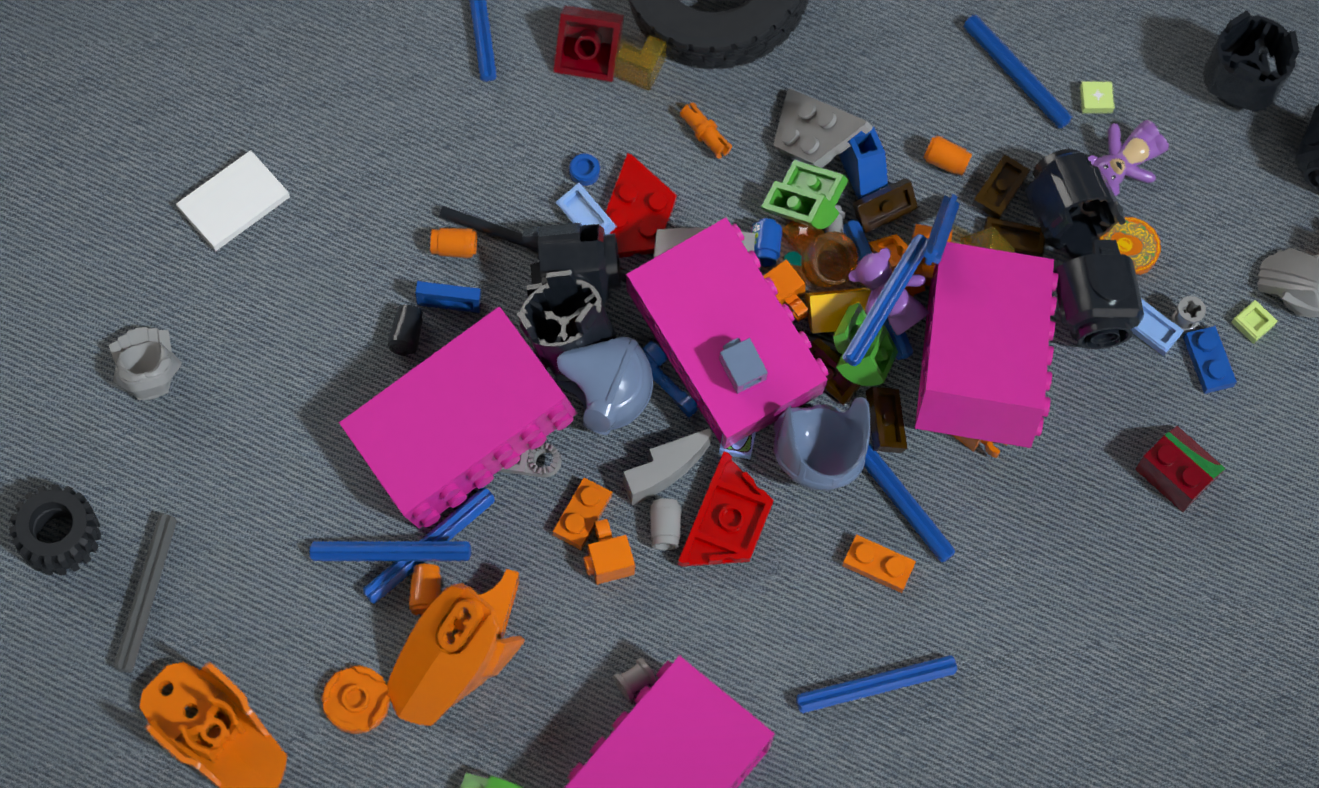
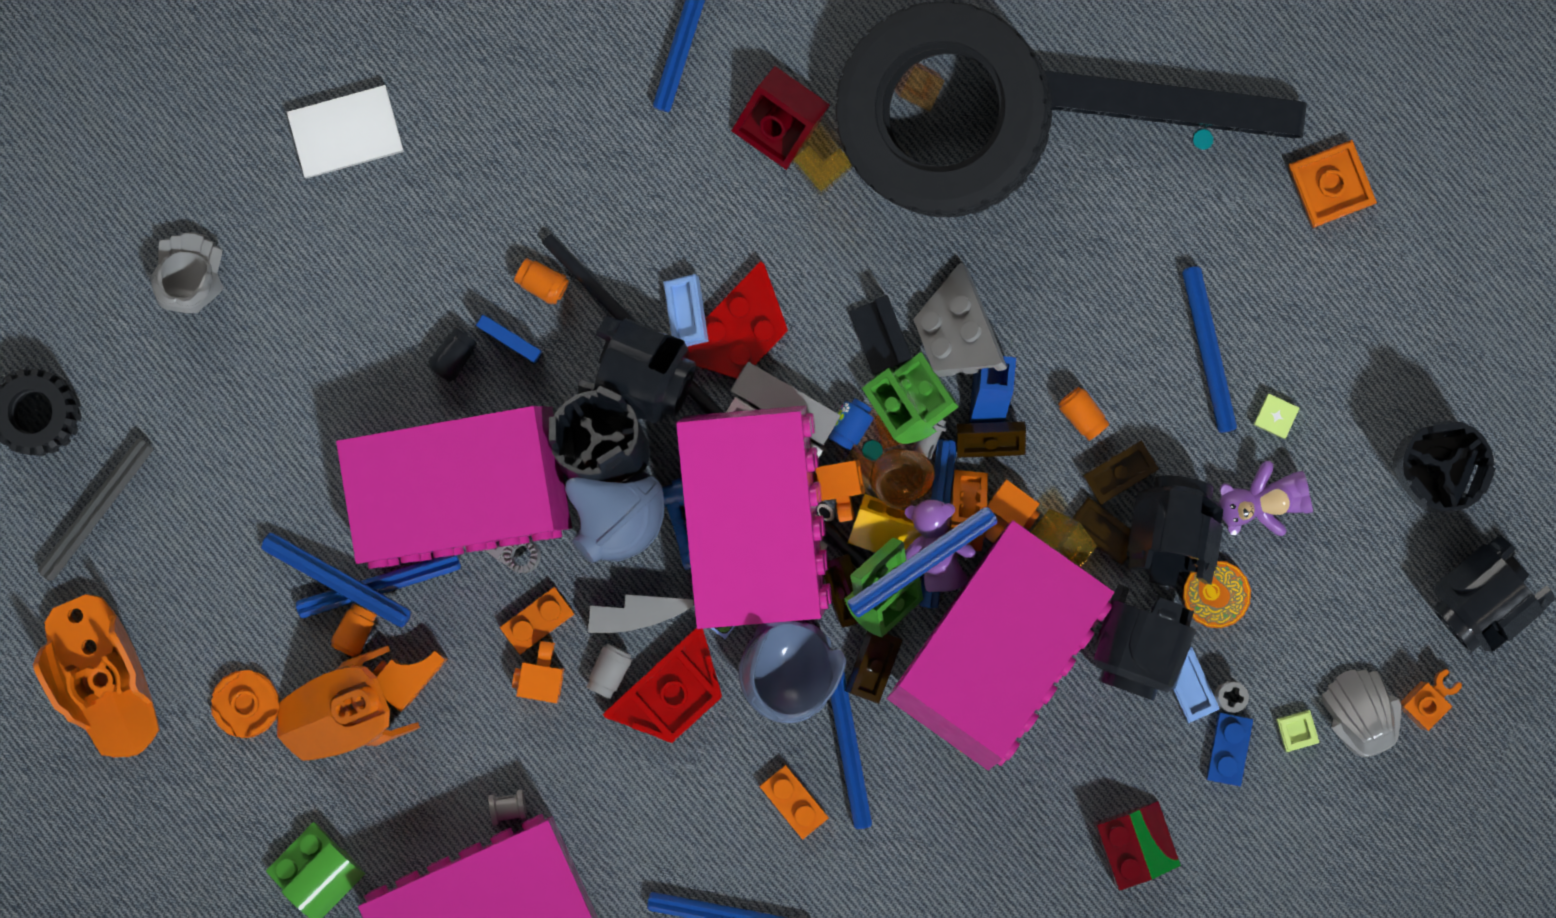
camera: 30 degrees right, 20 degrees up
(584, 169) = (710, 257): blue tile -> none
(705, 130) = (852, 271): orange pin -> none
(742, 364) = (741, 570): sand blue brick -> none
(753, 165) = (880, 335): none -> black panel
(941, 230) = (1020, 506): blue axle -> none

